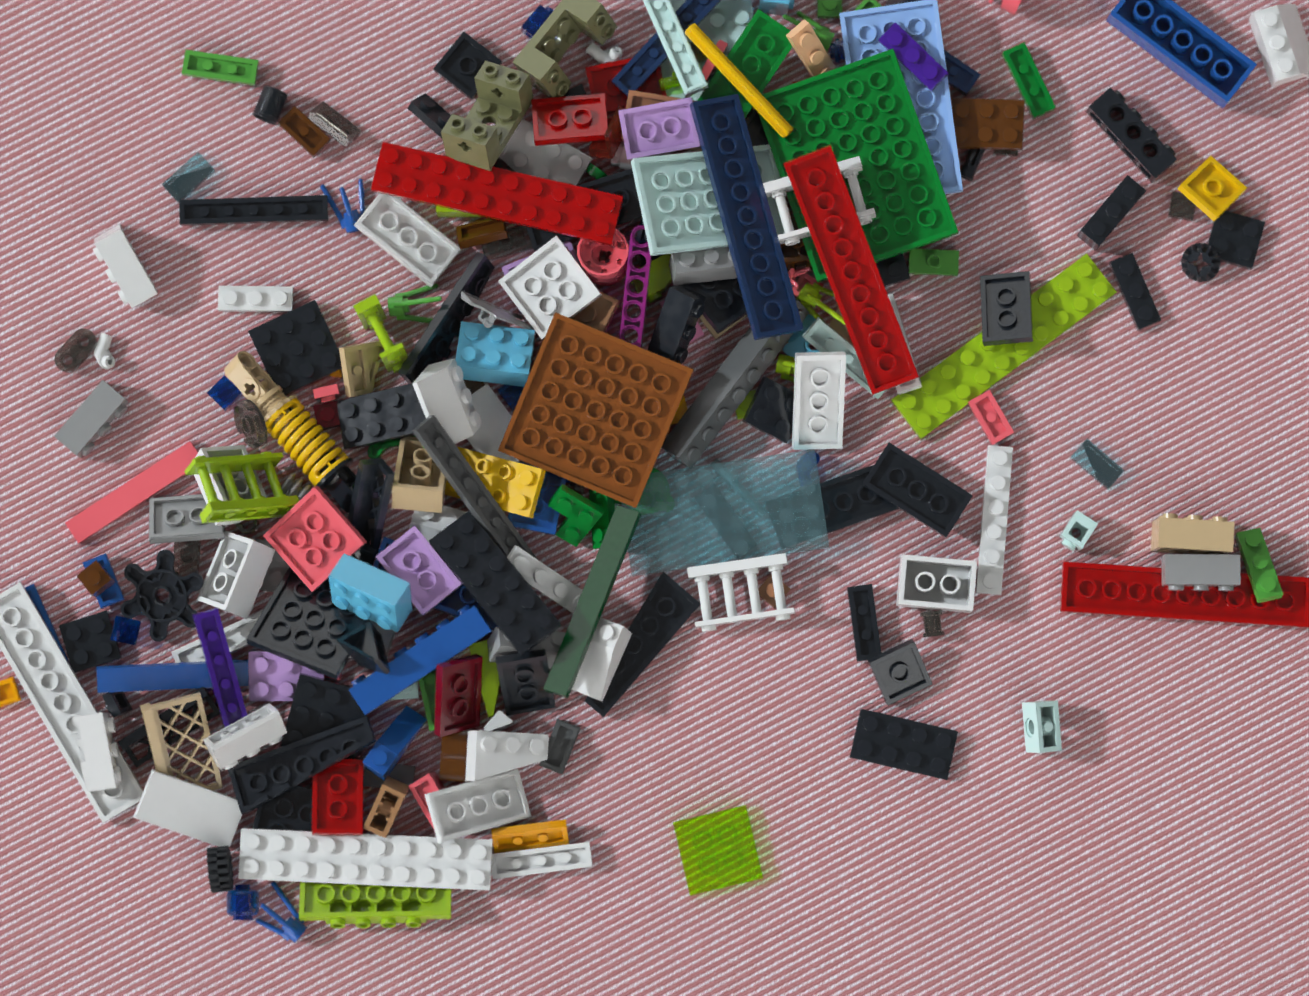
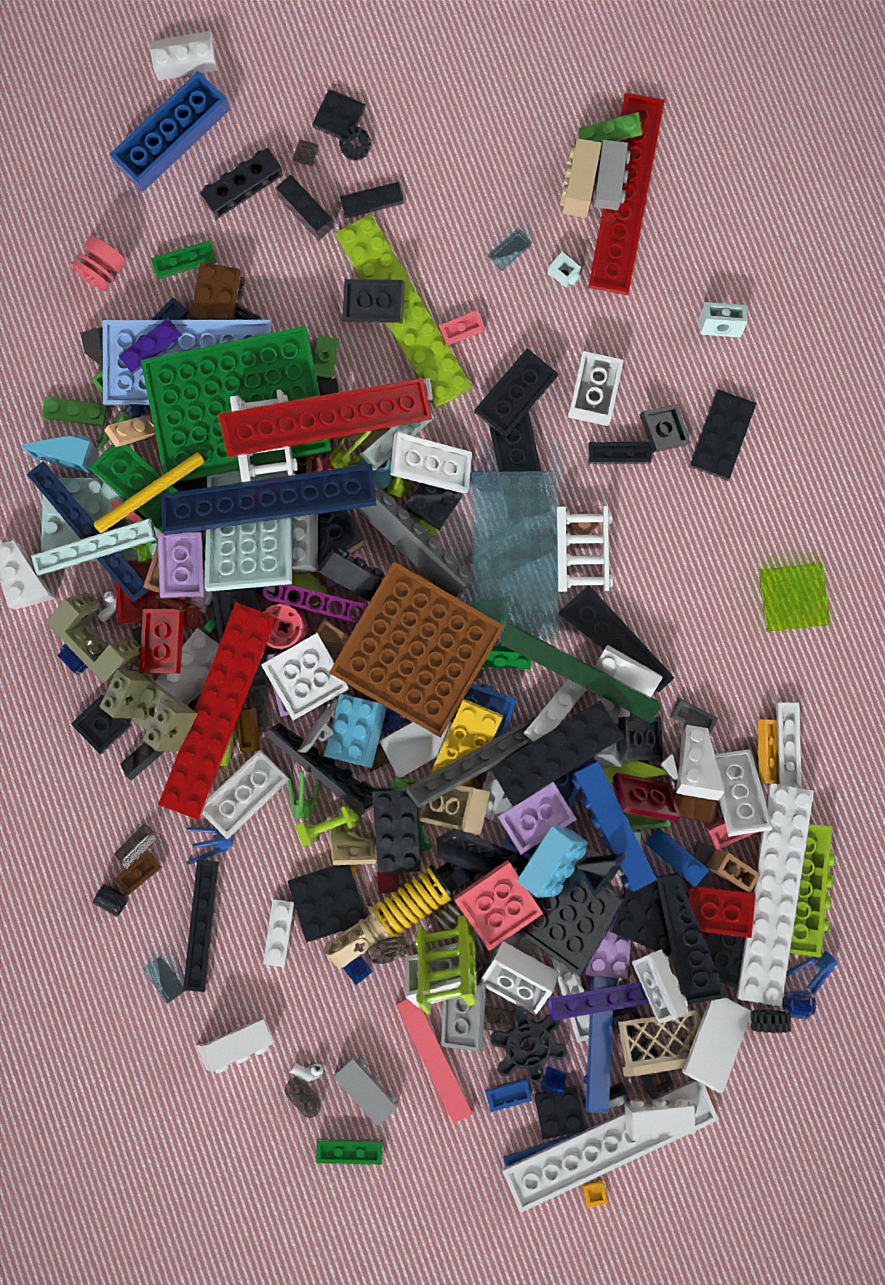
camera: 80 degrees left, 0 degrees up
(21, 410) = (349, 1151): none -> green plate
(96, 578) = (508, 1103): reddish brown brick -> none
(220, 67) = (71, 940): bright green plate -> none
(326, 393) = (370, 880): coral plate -> none
(445, 396) = (391, 775): white slope -> none
(579, 512) = (502, 676): green plate -> none
(932, 623) = (627, 397): clear smoke bush -> none
(994, 520) = (544, 336): white plate -> none
(1212, 188) = (295, 124): yellow plate -> none

